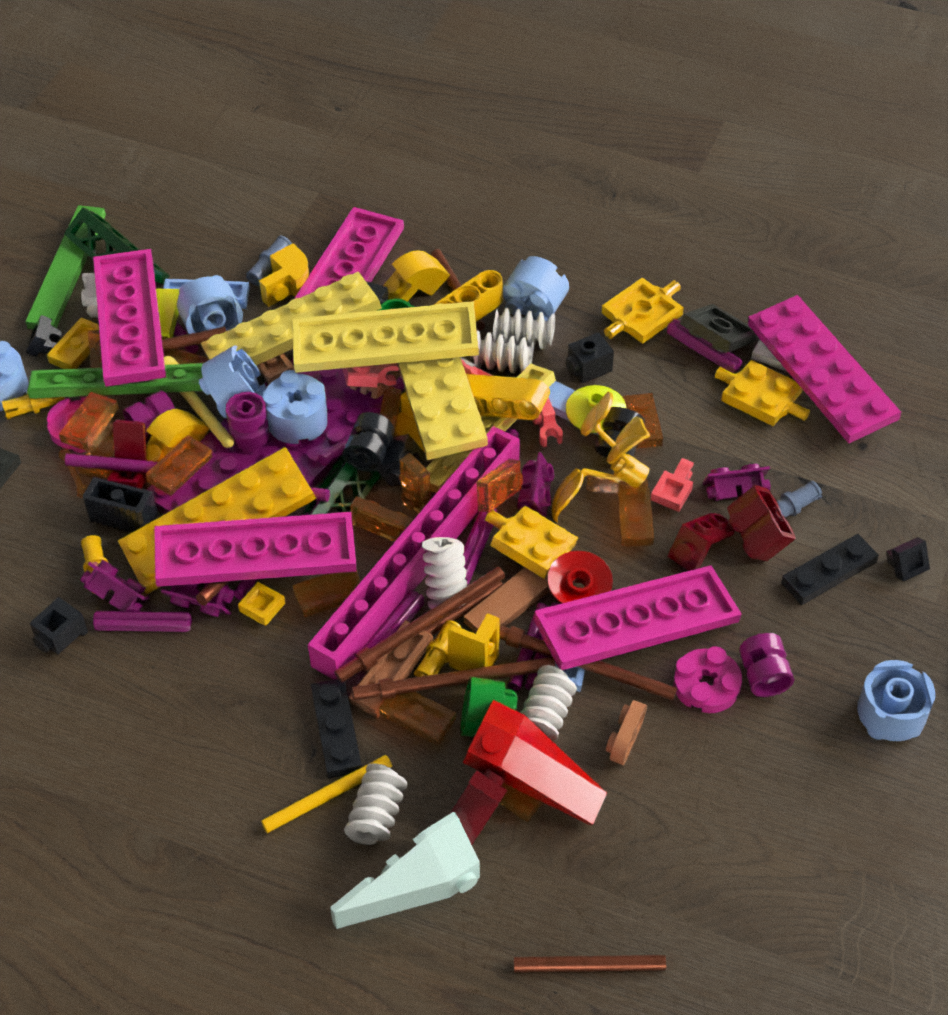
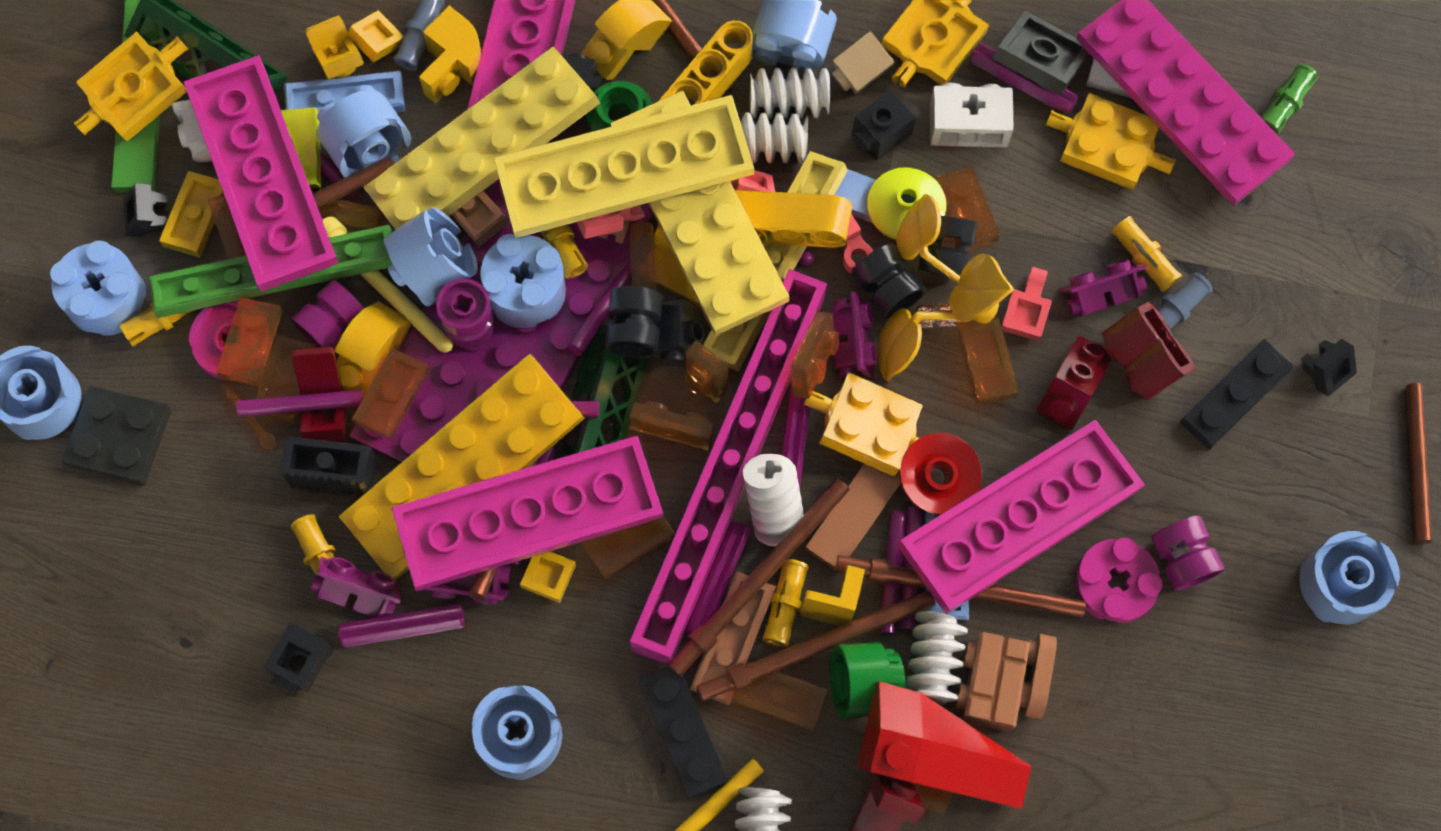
camera: 15 degrees left, 20 degrees up
(58, 261) = (131, 86): none -> yellow plate
(205, 259) = (333, 48): none -> yellow bracket
(205, 699) = (516, 707): none -> light blue brick
(236, 258) = (375, 36): none -> yellow plate
(333, 389) = (562, 240): none -> yellow pin
(569, 449) = (886, 277): none -> black wheel
(582, 316) = (861, 64): none -> tan brick
(589, 730) = (993, 681): none -> nougat brick
(657, 361) = (987, 126): none -> white brick
(764, 453) = (1128, 233): none -> yellow pin
(906, 383) = (1289, 97): none -> bright green pin

